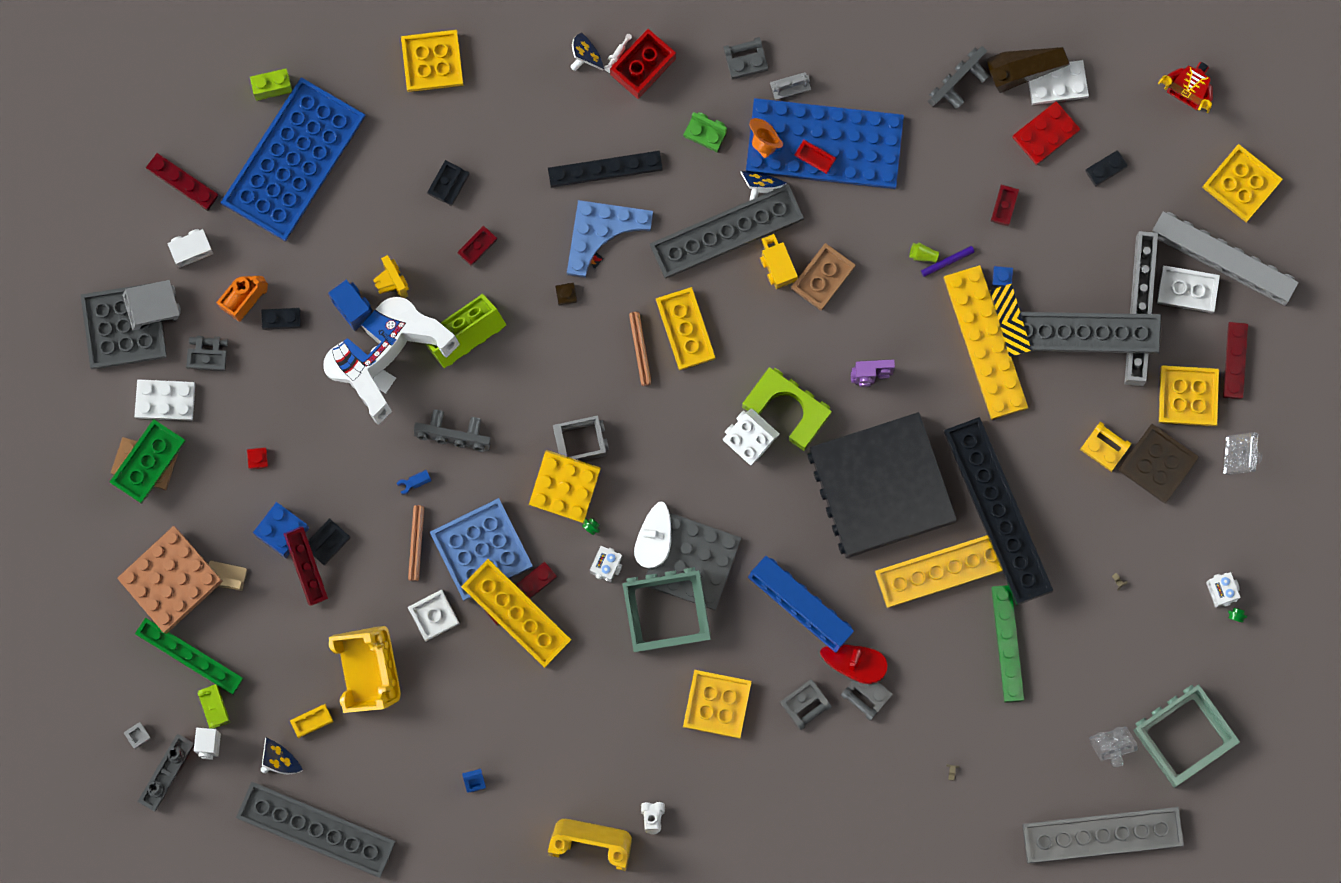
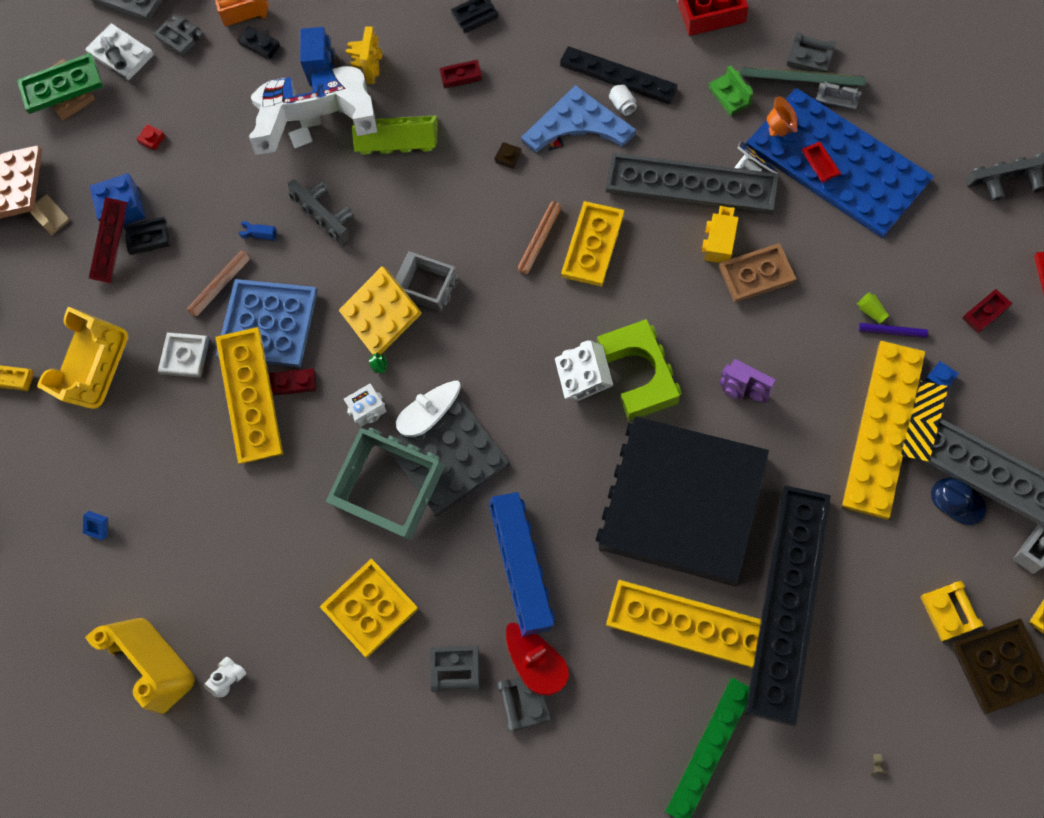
camera: 45 degrees right, 10 degrees down
(169, 406) = (113, 53): none -> dark grey axle
(625, 191) = (623, 100): none -> white brick
(752, 85) = (807, 76): none -> sand green tile
(1066, 365) = (958, 501): none -> dark blue piece

